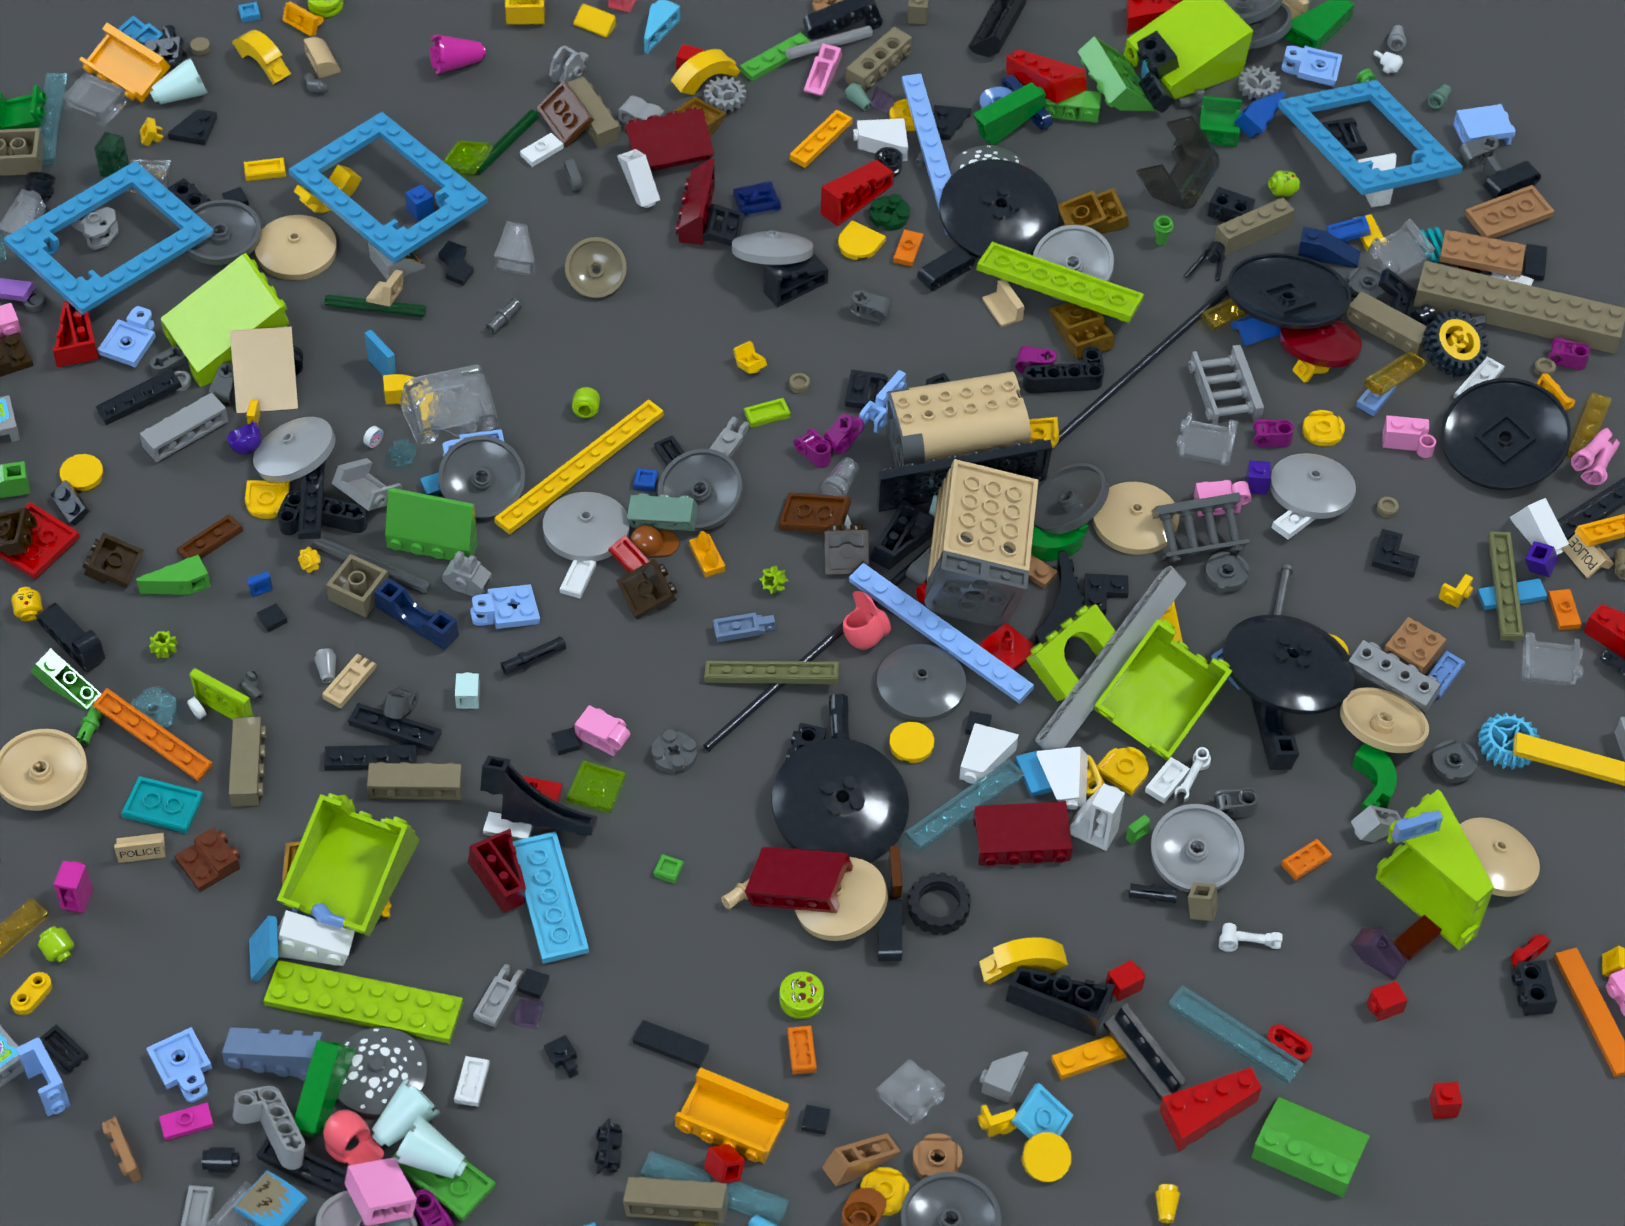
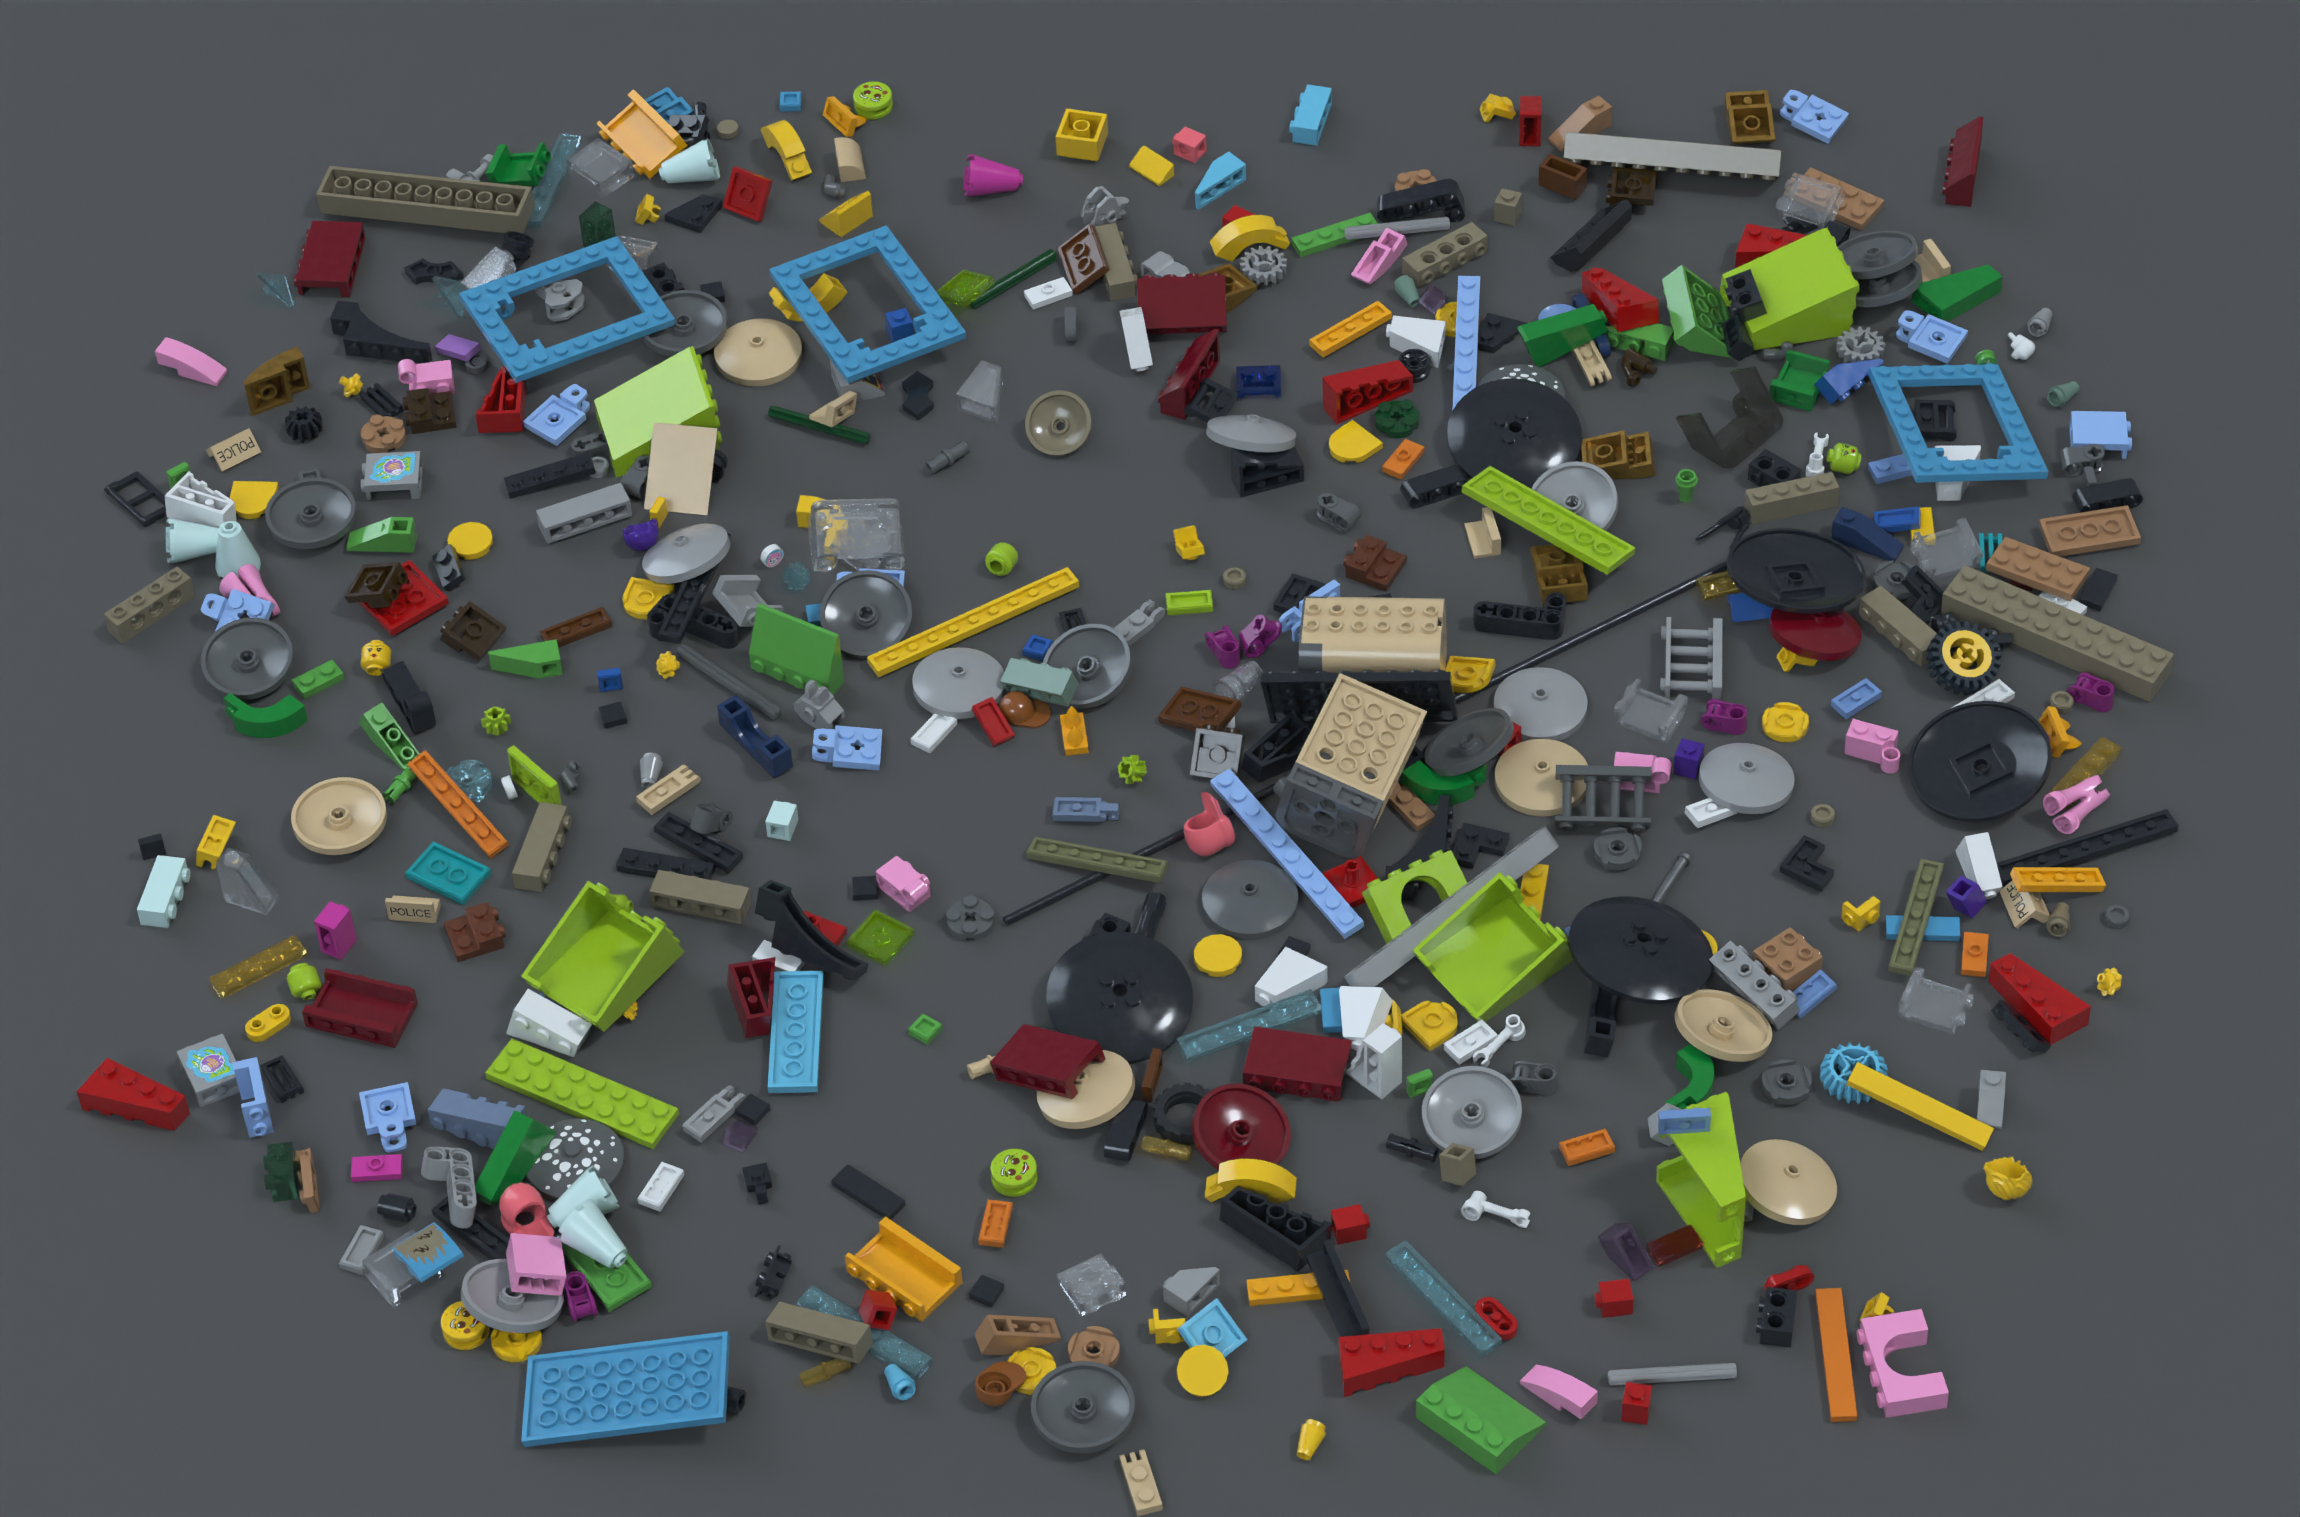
camera: 20 degrees right, 5 degrees down
(95, 1147) = (282, 1171): none -> clear green brick
(120, 960) = (361, 1008): none -> dark red panel
(240, 102) = (747, 193): none -> red tile
(263, 948) = (498, 1022): dark azure tile -> none
(264, 169) = (751, 267): yellow tile -> none
(325, 916) = (564, 1002): medium blue arm -> none
(337, 106) = (849, 214): none -> yellow slope
(355, 585) = (700, 695): dark tan brick -> none
(379, 354) = (803, 473): dark azure tile -> none
(524, 660) = (860, 799): black pin -> none
(647, 588) = (998, 754): dark brown plate -> none
(918, 347) = (1374, 563): none -> copper plate
(932, 940) = (1166, 1148): none -> clear yellow axle
(996, 907) = (1240, 1124): none -> dark red dish
(1033, 356) = (1493, 592): magenta piece -> none
(1040, 135) = (1592, 363): none -> tan hinge
(1078, 127) = (1641, 363): none -> dark brown plant
(1113, 446) = (1543, 703): none -> light grey dish
(1262, 196) = (1816, 459): none -> white brick
(1325, 185) = (1889, 469): none -> medium blue plate
(1372, 1101) = (1560, 1390): none -> bright pink slope
(1394, 373) = (1883, 677): clear yellow plate -> none
(1462, 1063) = (1672, 1373): none -> light grey axle

